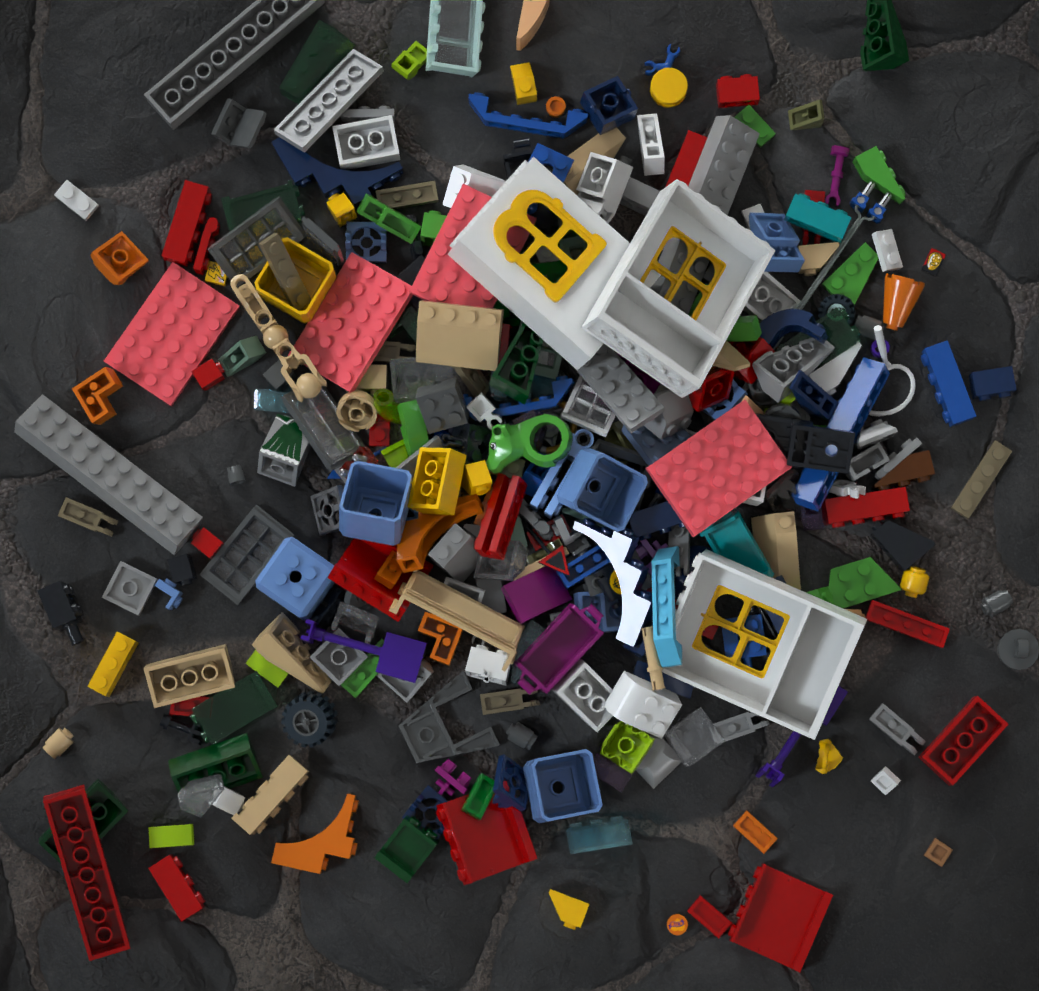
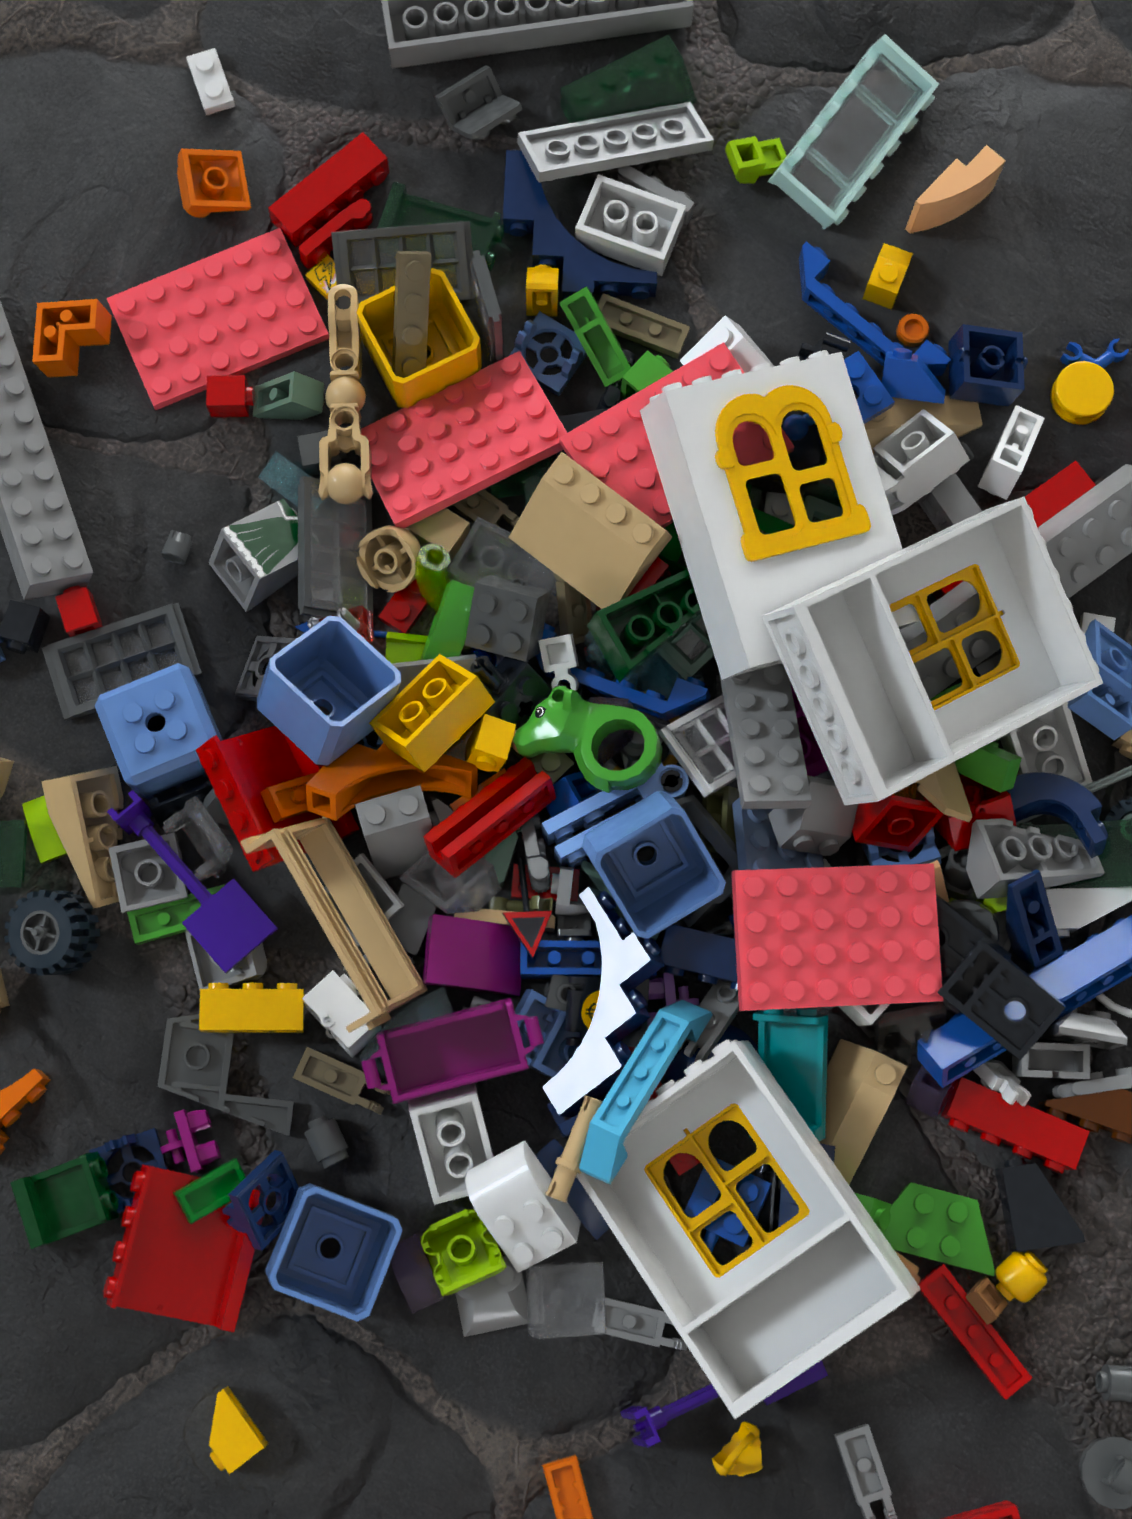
camera: 30 degrees right, 5 degrees down
(440, 692) = (251, 1009): none -> yellow brick
(446, 637) = (306, 944): orange brick -> none
(573, 139) = (910, 378): none -> blue slope
(598, 835) = (340, 1355): clear light blue slope -> none
(904, 604) = (986, 1300): none -> medium nougat tile

